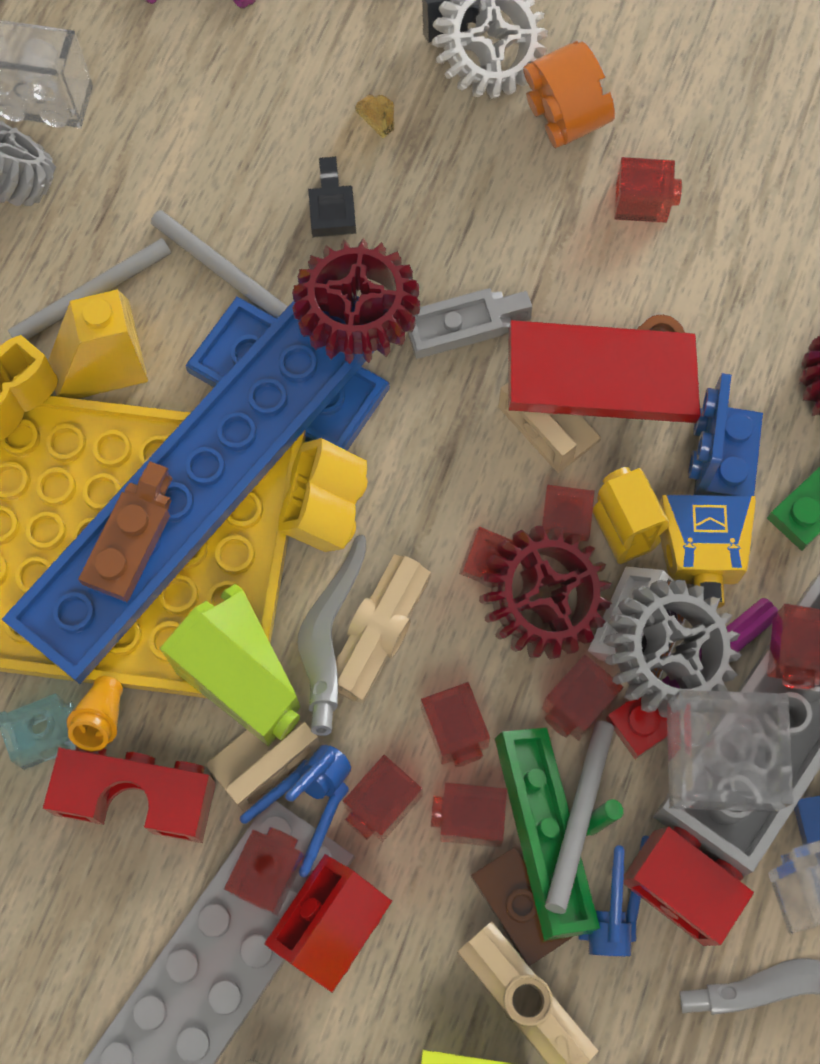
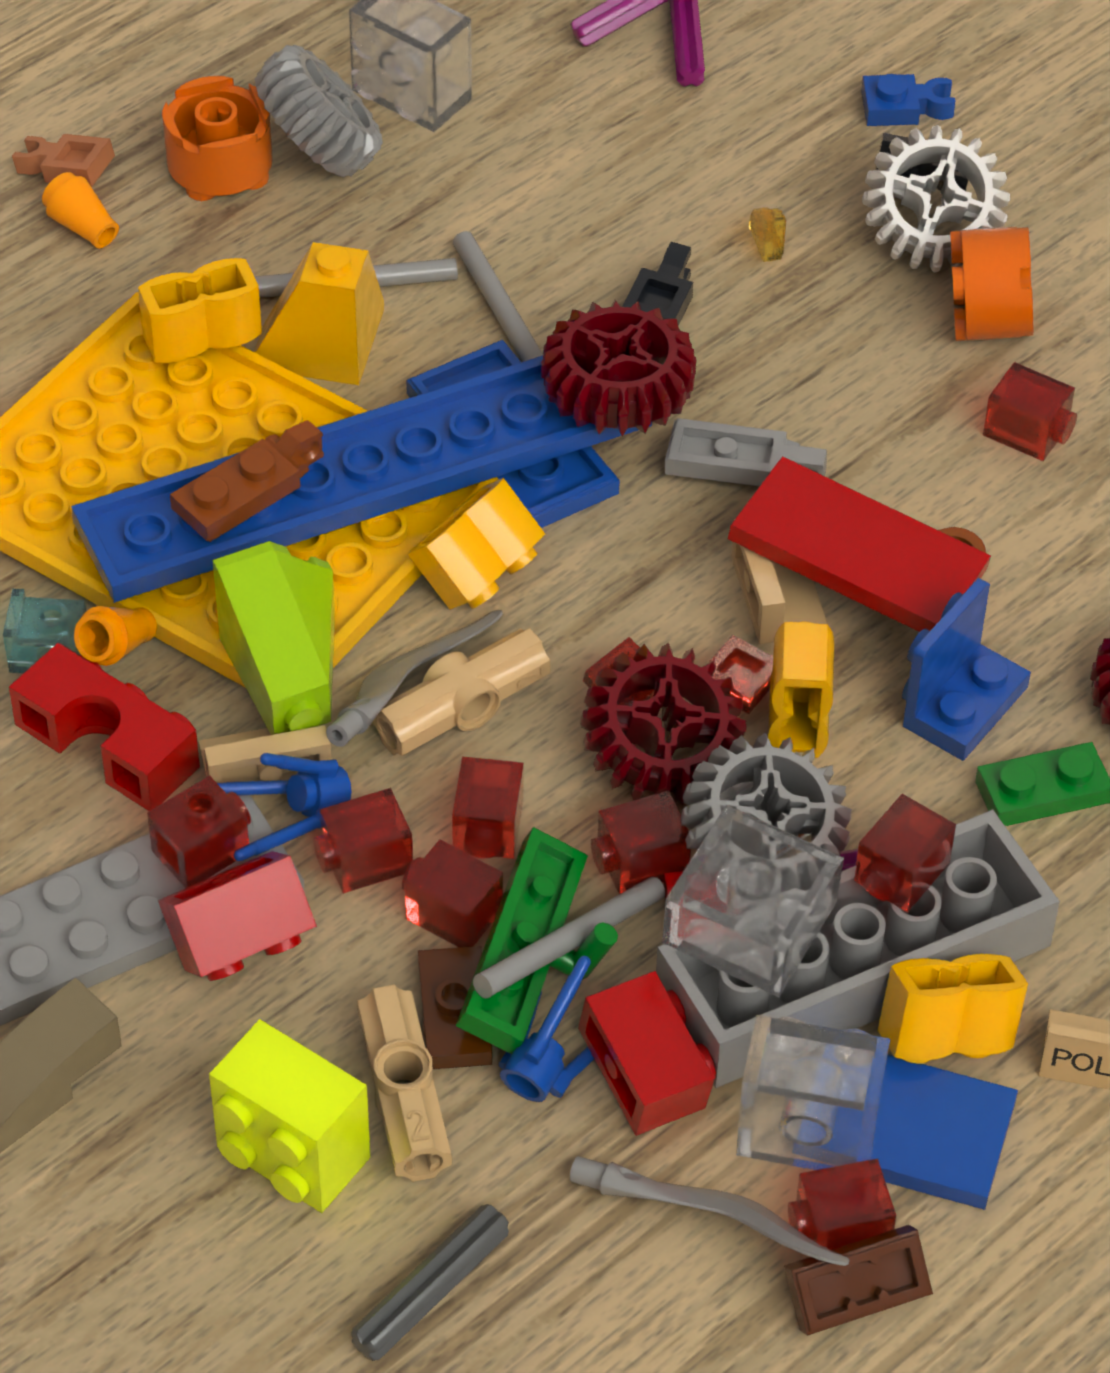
camera: 25 degrees right, 20 degrees down
(708, 540) = (886, 752): torso -> none

